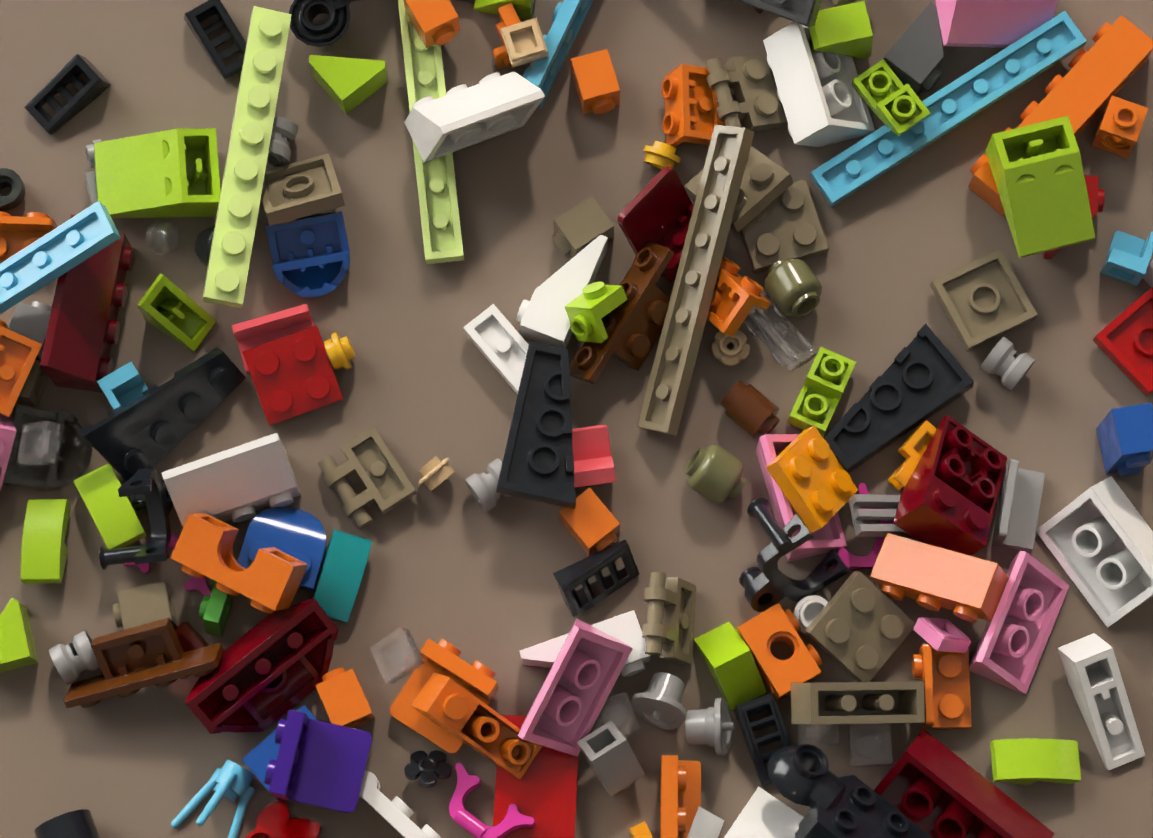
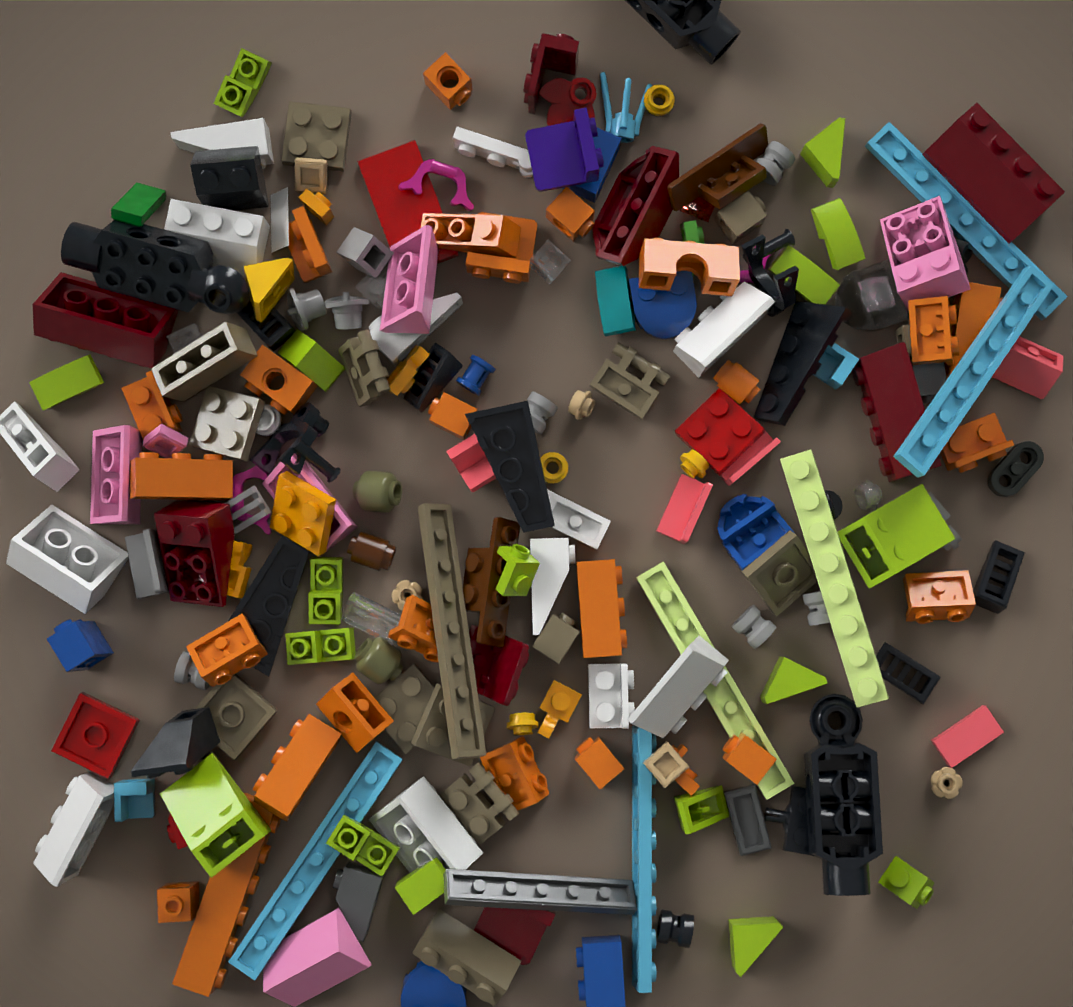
camera: 160 degrees right, 10 degrees up
(141, 99) = (938, 596): none -> orange bracket
(160, 795) = (662, 92): none -> yellow plate
(175, 313) = (828, 439): lime slope -> none
(244, 418) = (737, 382): none -> orange brick
(359, 151) = (754, 627): none -> light grey wheel
(373, 307) = (684, 508): none -> coral panel
(428, 768) = (492, 195): black plant -> none
(494, 408) = (553, 457): none -> yellow plate
(519, 239) = (600, 608): none -> orange brick
(543, 560) = (475, 375): none -> blue bush
(550, 147) = (609, 695): none -> white bracket
(613, 162) = (558, 704): none -> light orange plate
(625, 597) = (402, 376): none -> light orange plate
(745, 771) = (268, 283): none -> yellow slope
(843, 240) = (354, 712): none -> orange brick
(853, 334) = (320, 646): none -> lime slope
(931, 207) = (296, 766): none -> orange brick
(961, 363) = (226, 651): none -> orange bracket
(1054, 279) = (179, 744): none -> black slope

